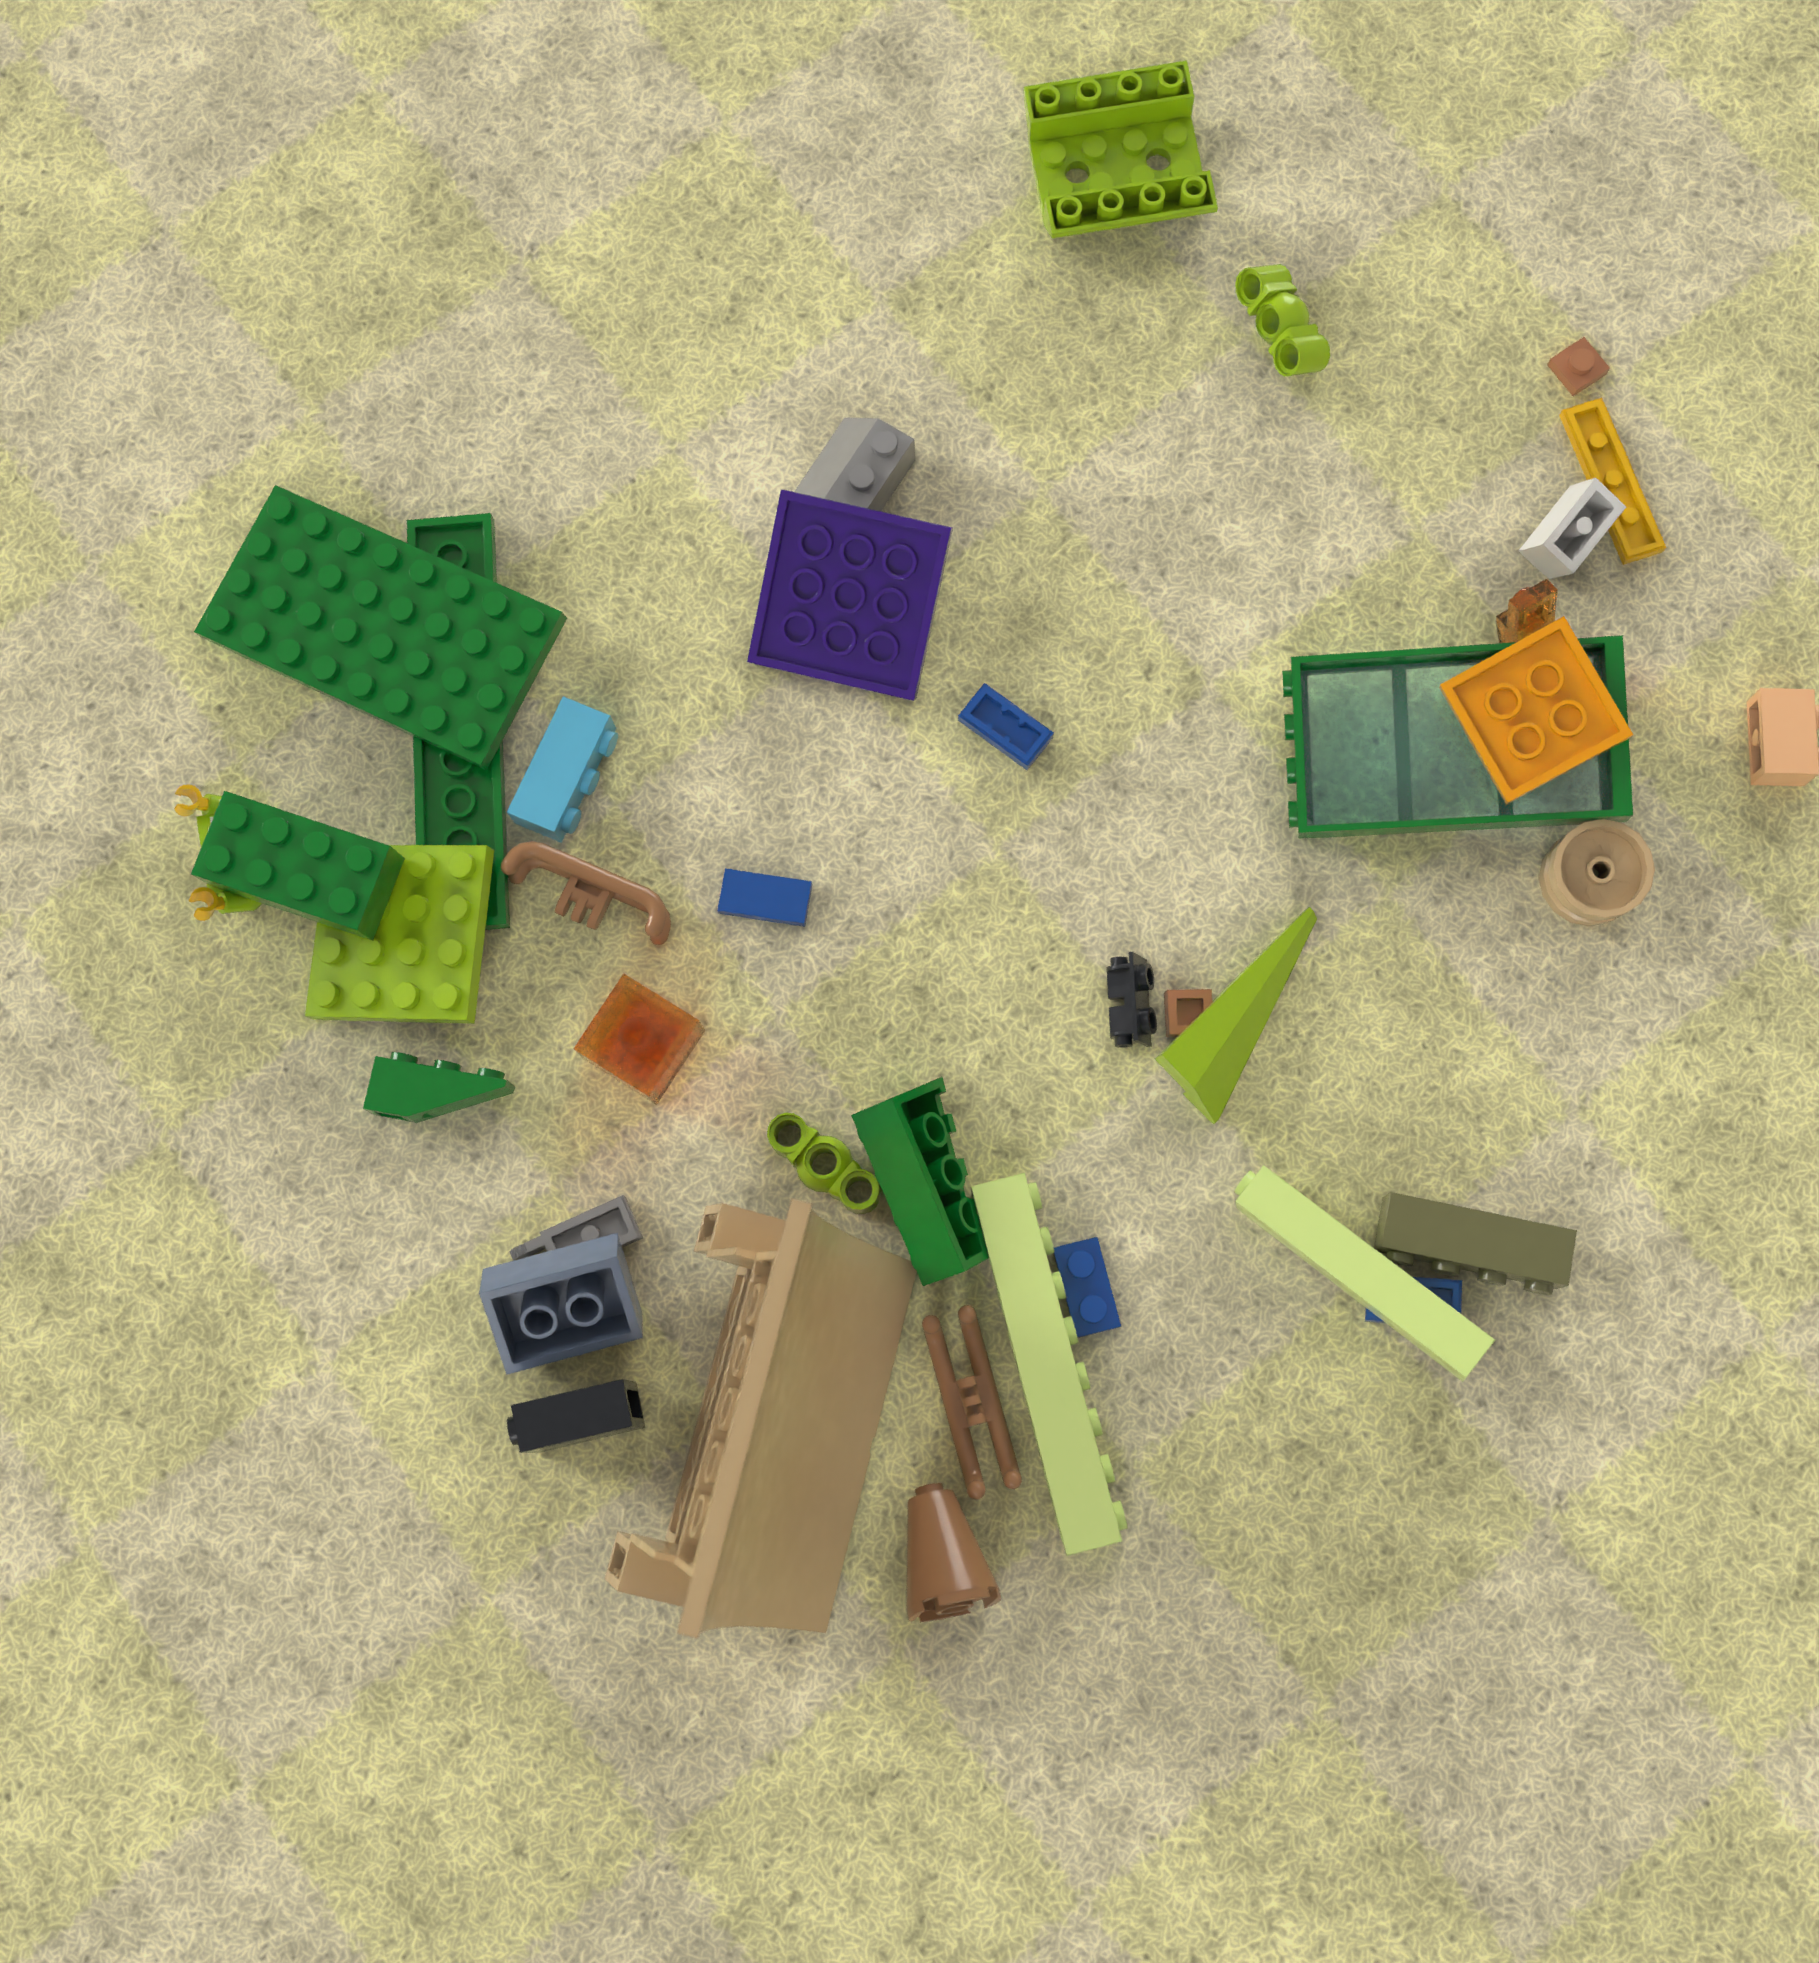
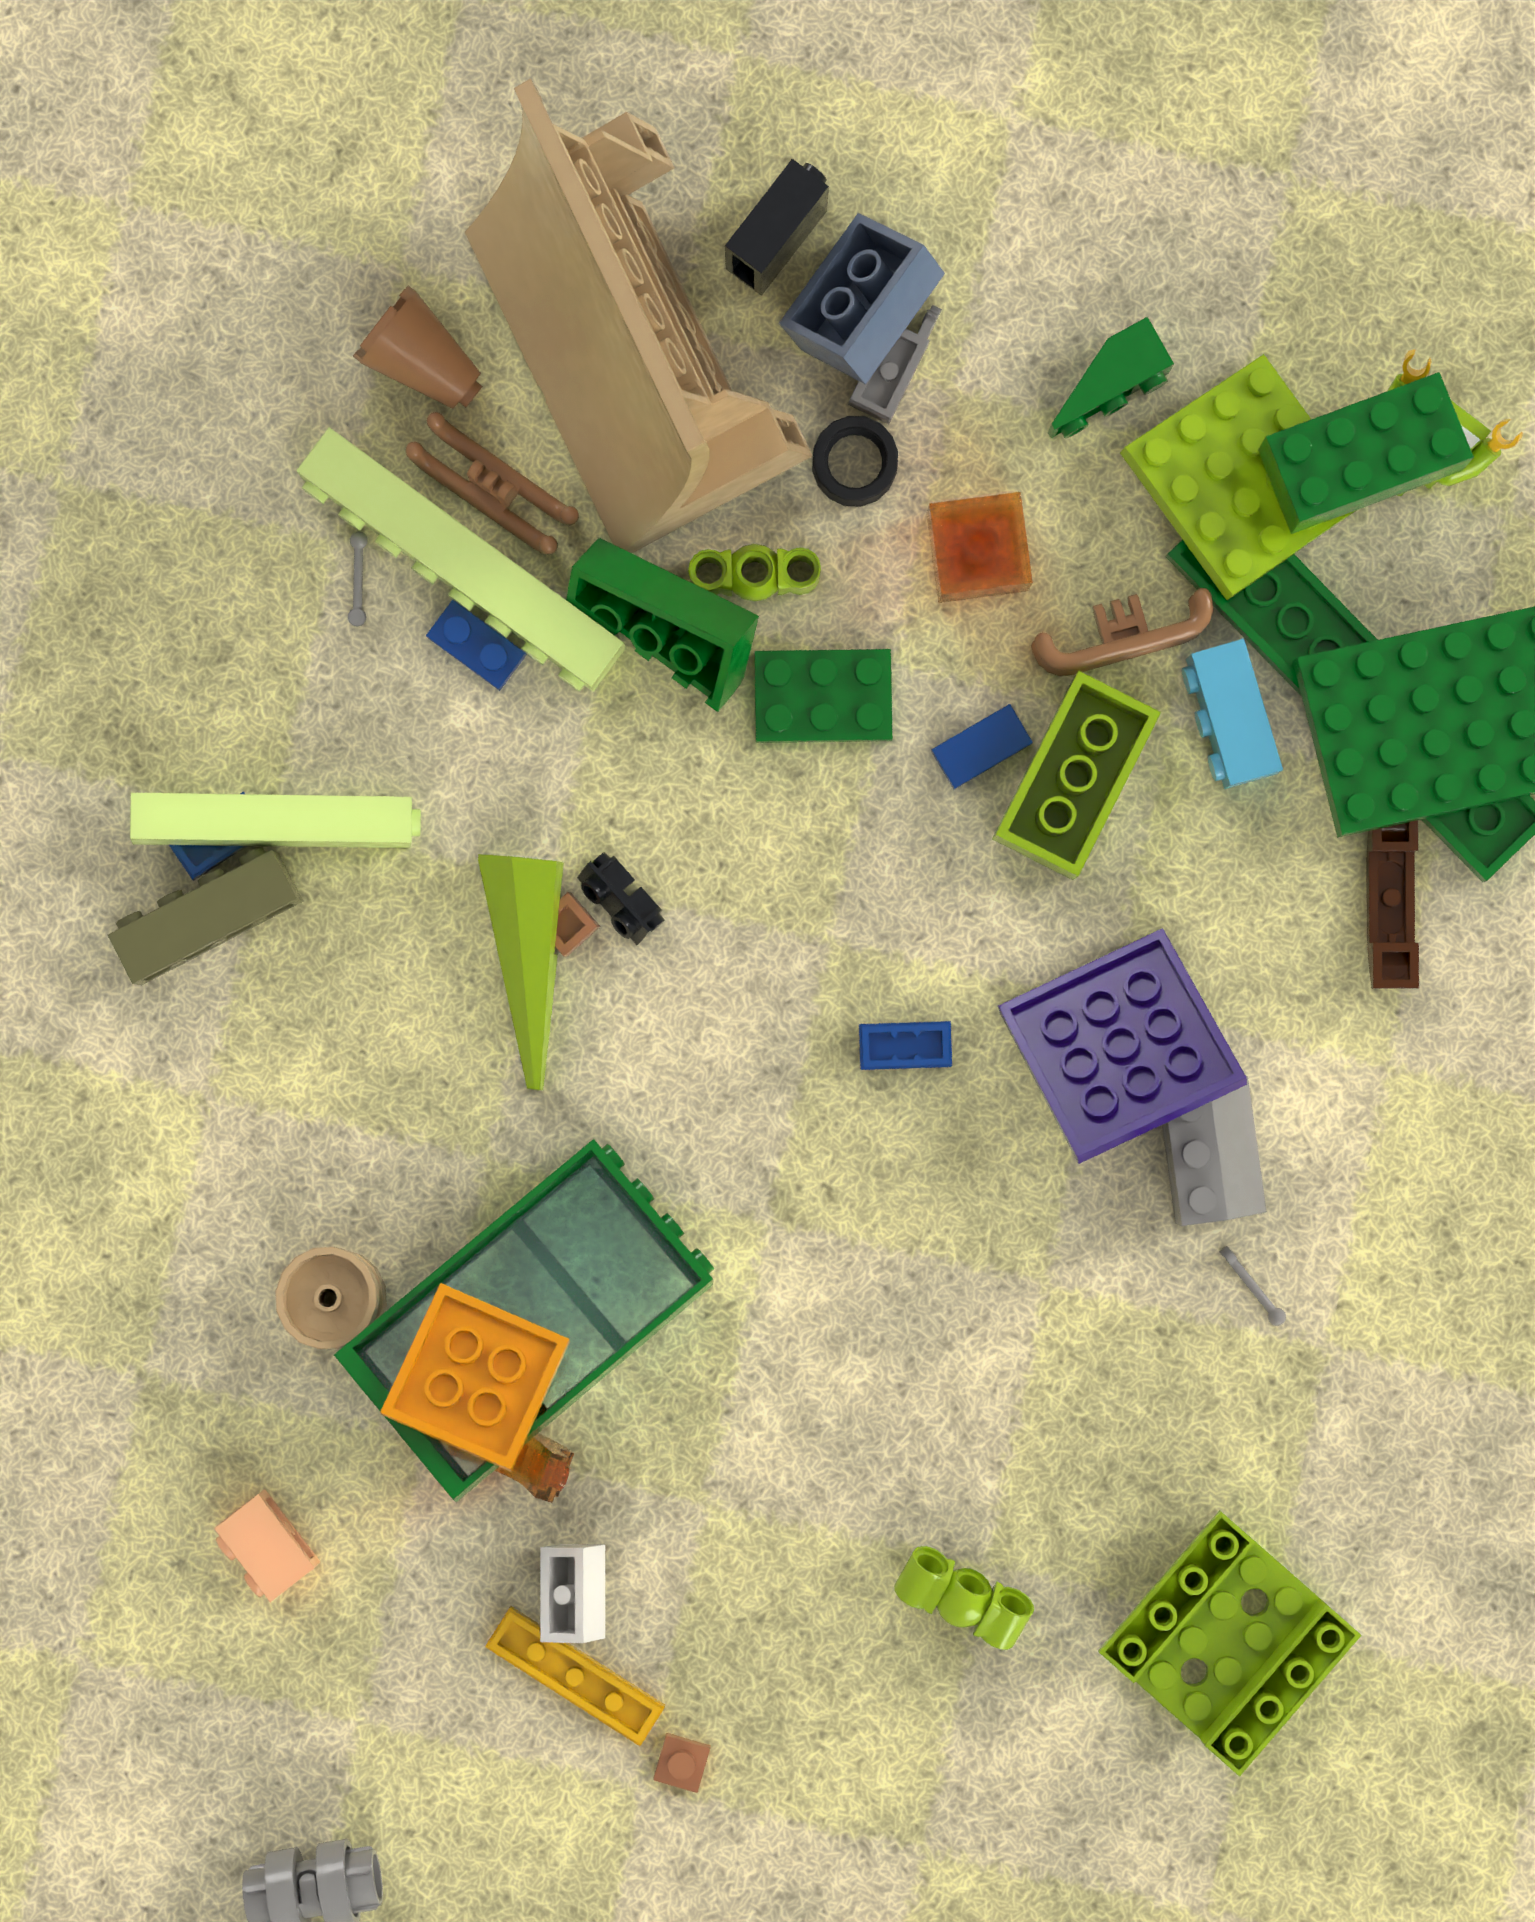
camera: 130 degrees right, 10 degrees up
(578, 546) = (1391, 907): none -> reddish brown slope
(651, 1162) = (863, 427): none -> black tyre
(715, 813) = (1076, 775): none -> lime brick
(851, 1030) = (823, 696): none -> green plate
(897, 345) = (1276, 1315): none -> light grey hinge
(1162, 1389) = (357, 616): none -> light grey hinge

